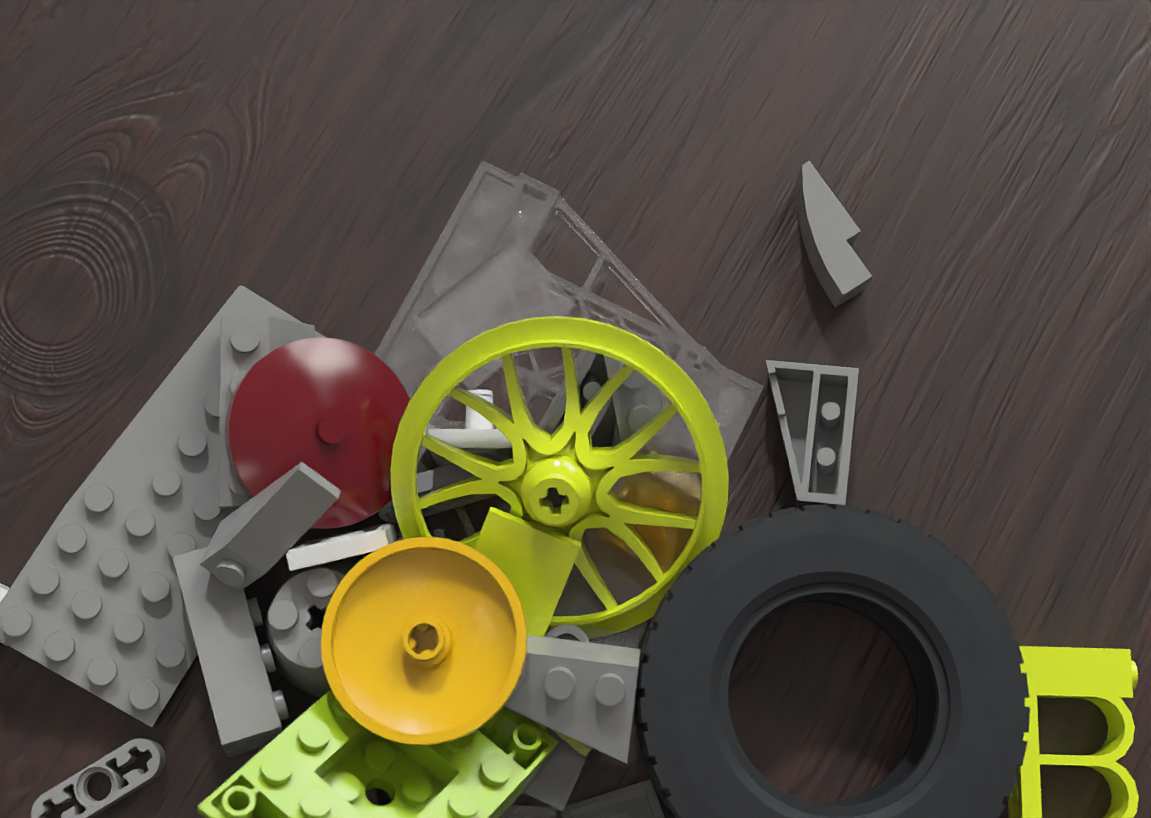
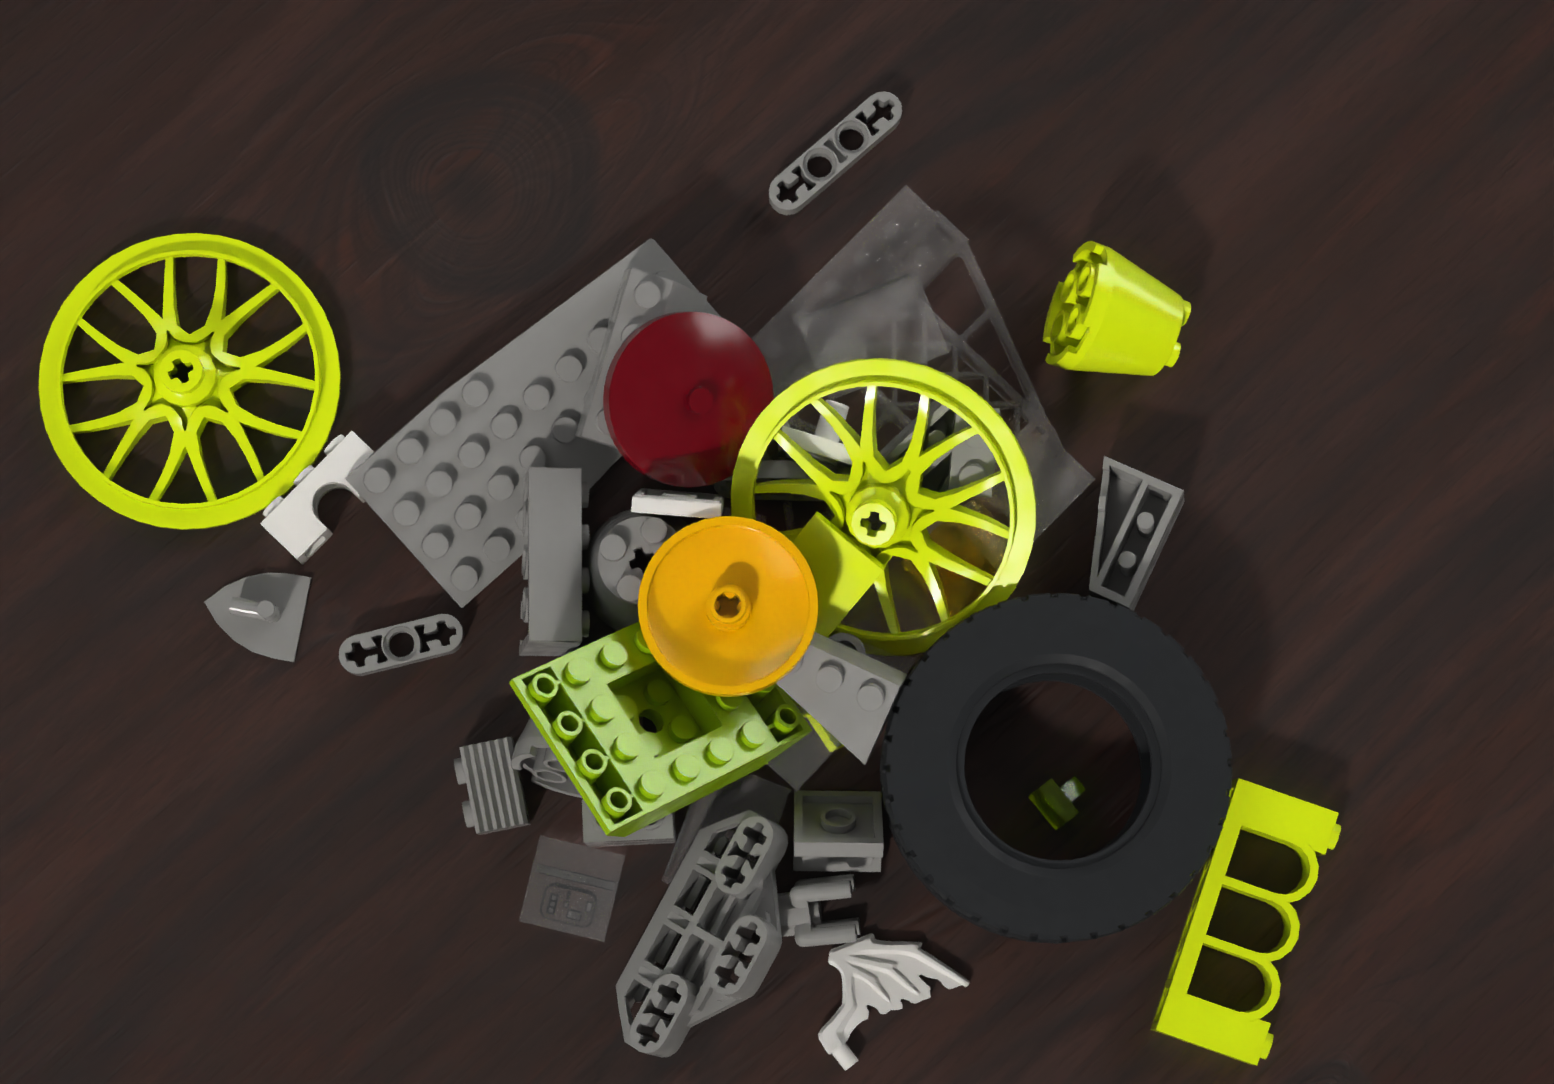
camera: 15 degrees right, 5 degrees up
(267, 526) = (621, 467): light grey slope -> none
(397, 150) = (831, 149): none -> light grey beam
(728, 221) = (1113, 317): none -> neon yellow cone
(829, 238) = (1203, 359): light grey slope -> none
(836, 730) = (1056, 802): none -> clear neon green tile

